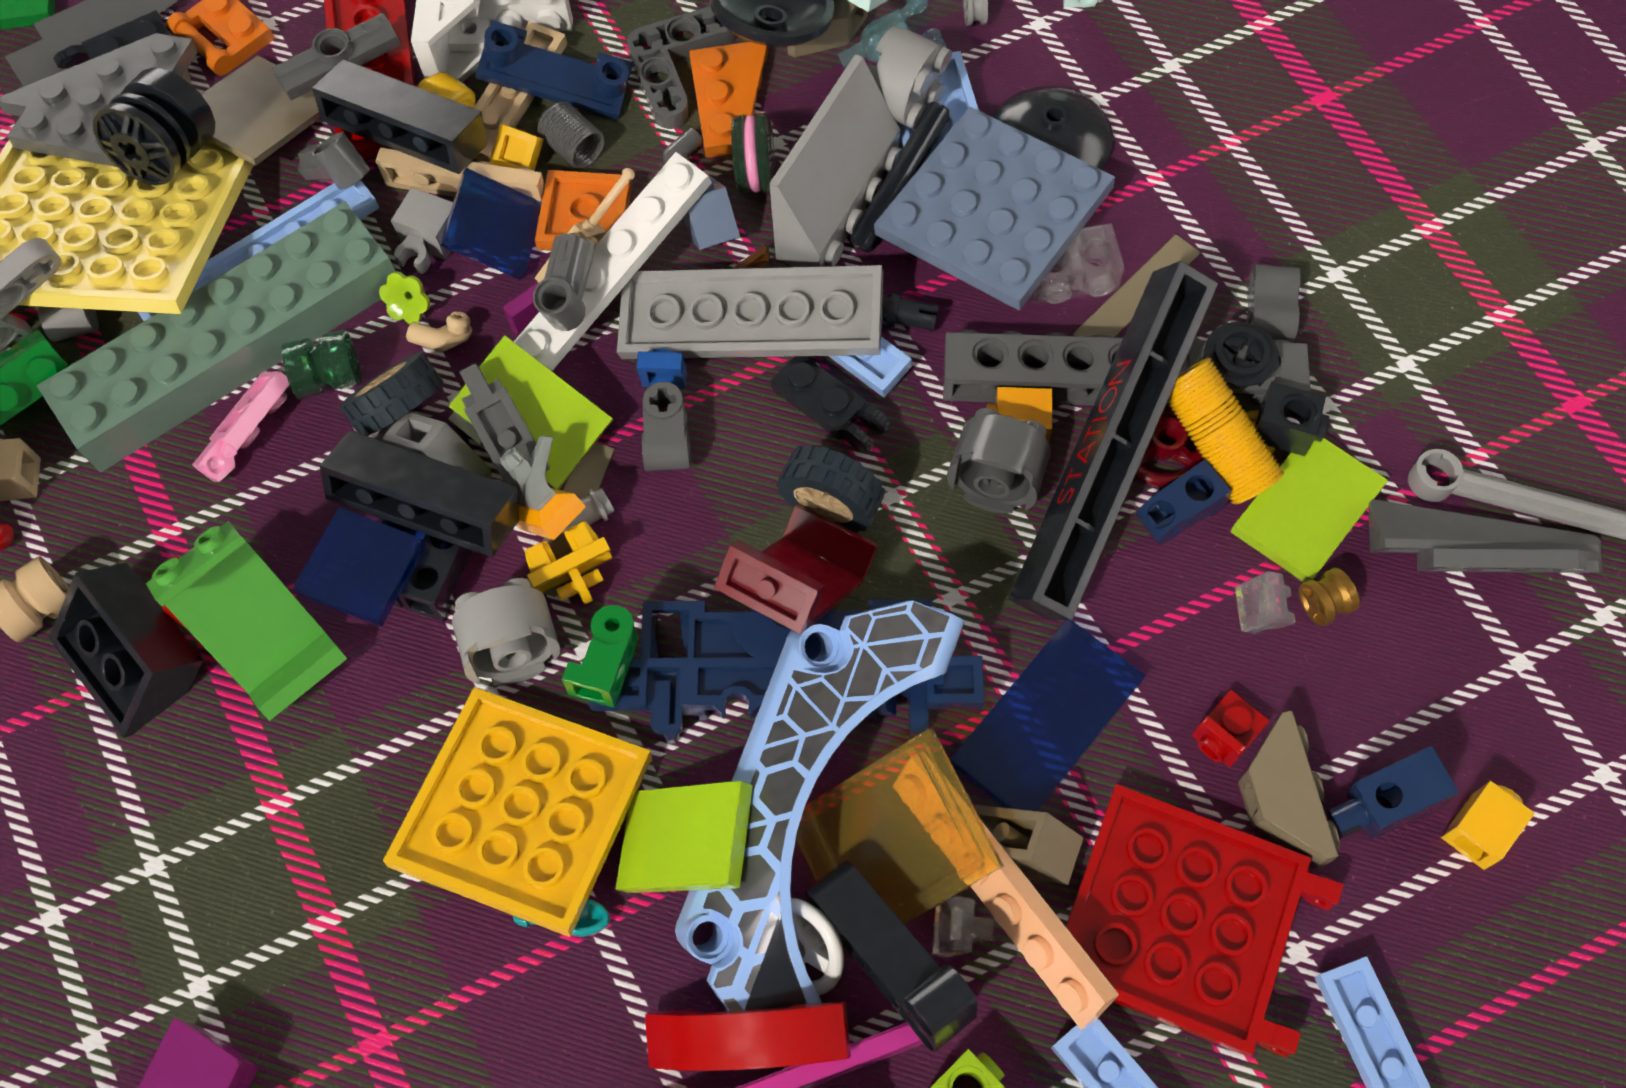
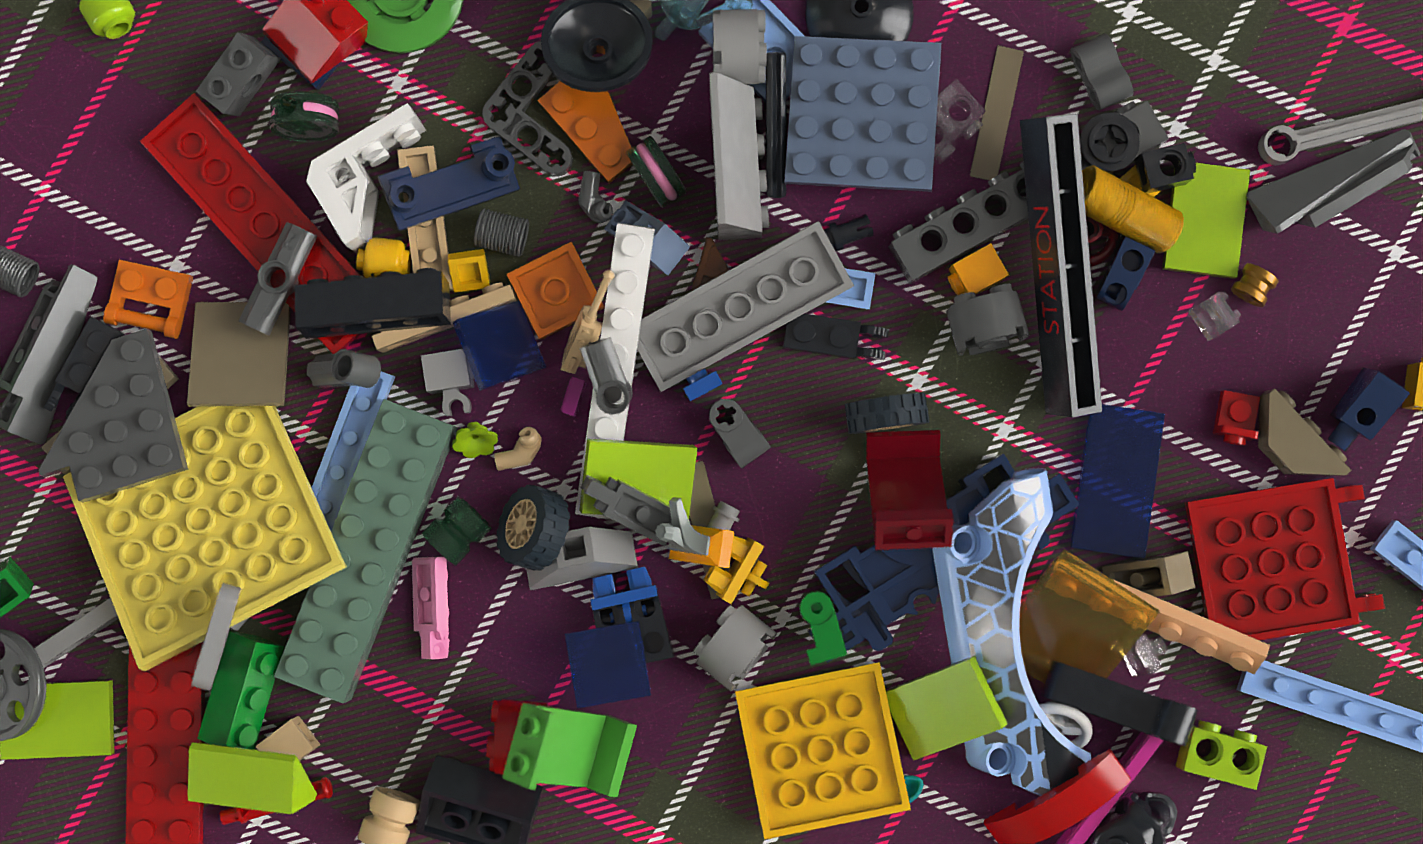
camera: 30 degrees left, 20 degrees up
(154, 126) = (201, 432): black wheel -> none
(420, 493) = (614, 590): black brick -> none

